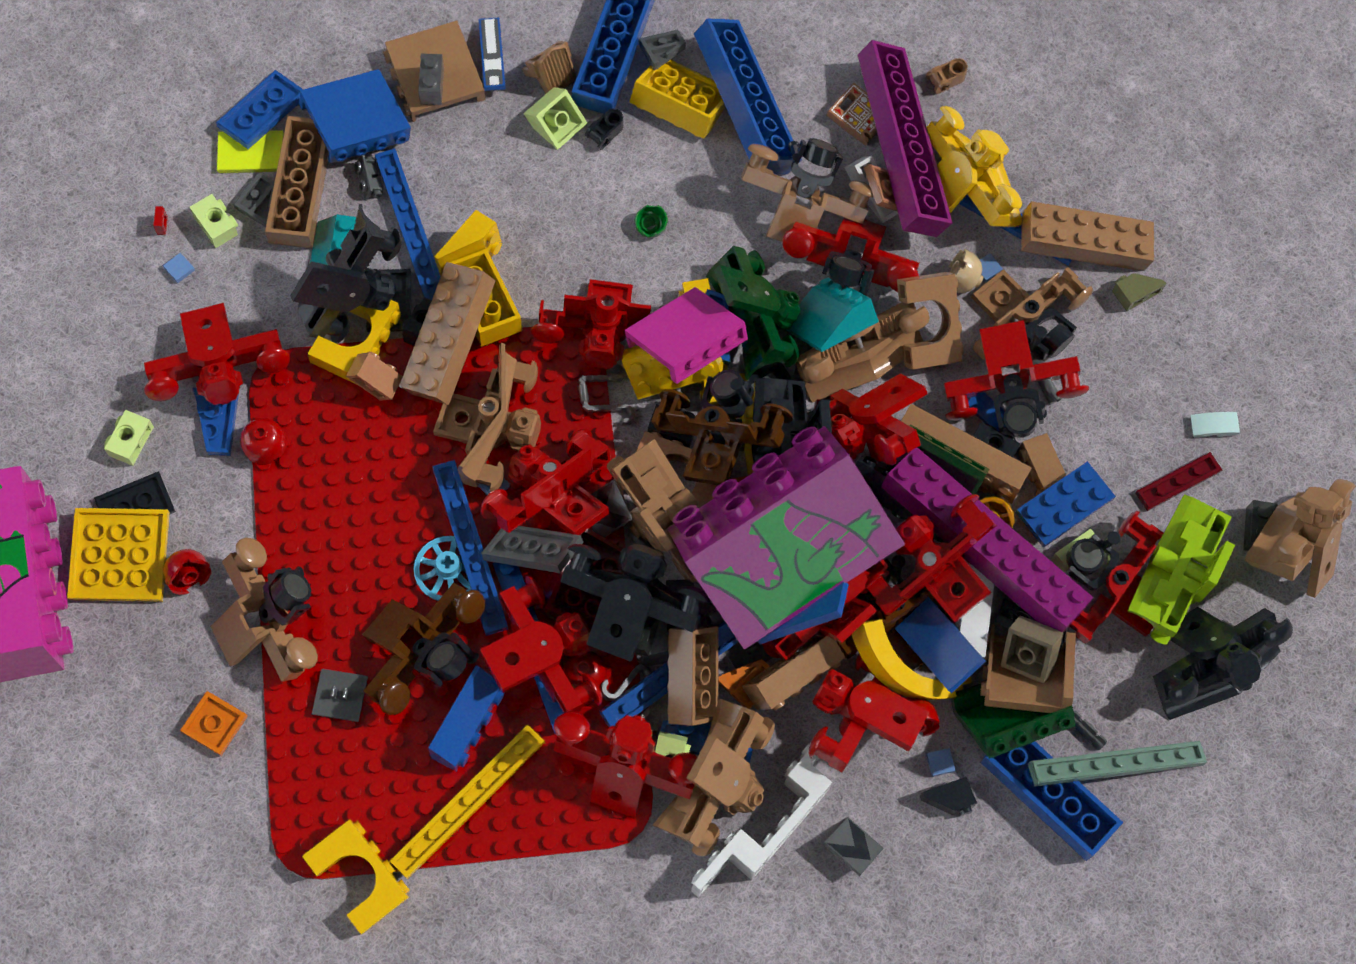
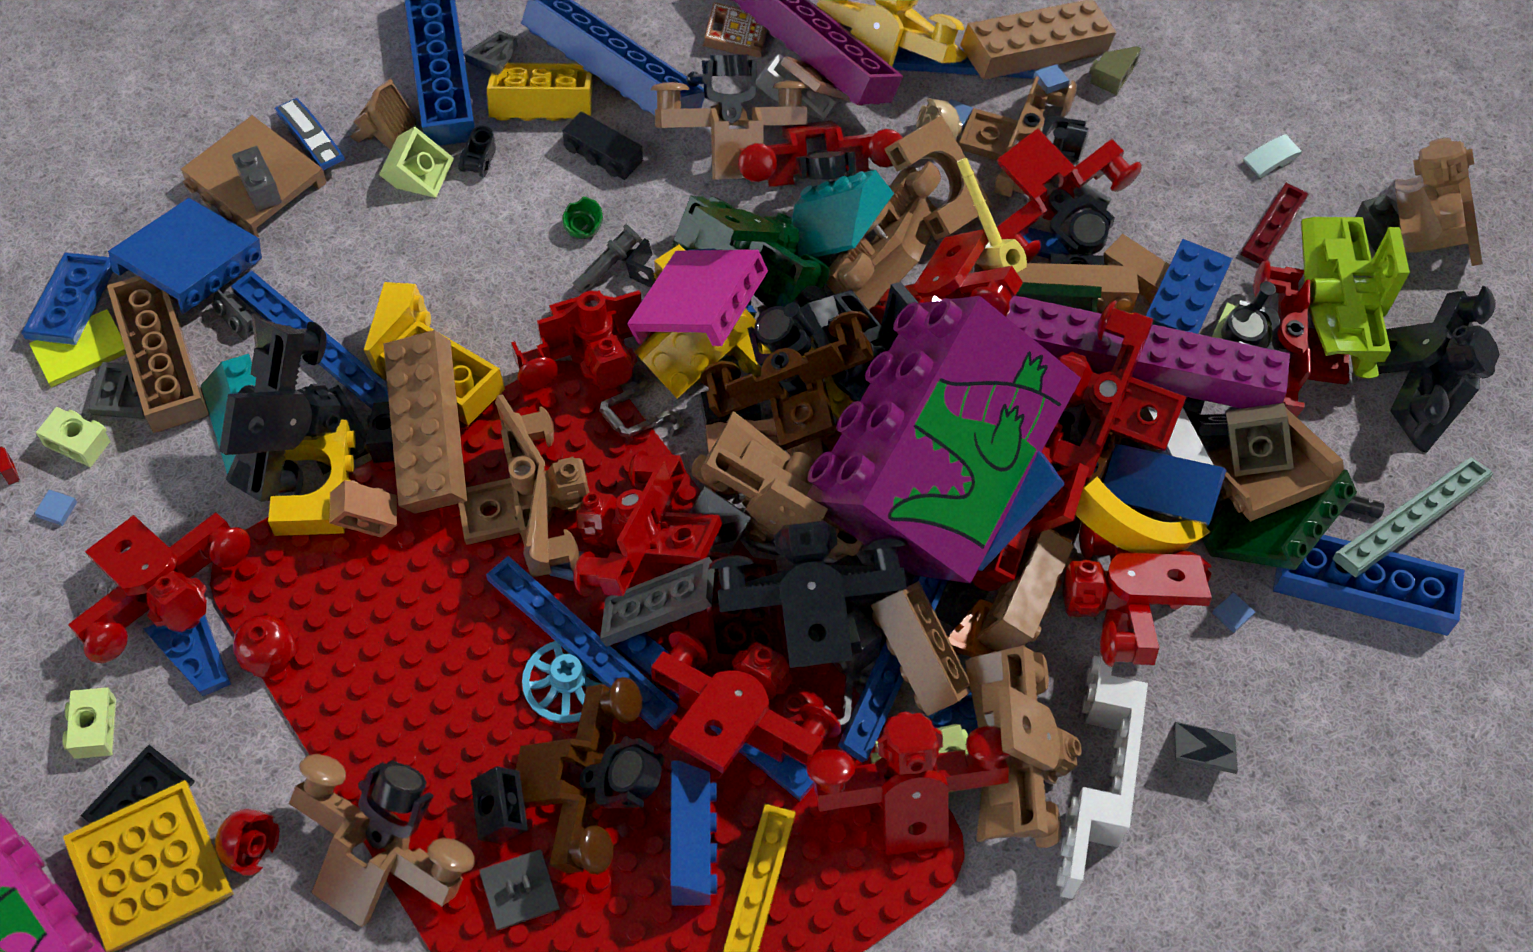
camera: 25 degrees left, 10 degrees down
(354, 633) = (498, 805): none -> black brick
(657, 261) = (616, 250): none -> dark grey pin
(671, 273) = (636, 260): none -> black bracket
(699, 167) = (602, 146): none -> black brick
(926, 409) = (998, 251): none -> light yellow piece
(951, 797) = (1271, 641): black slope -> none
(1073, 277) = (1051, 79): none -> medium blue tile

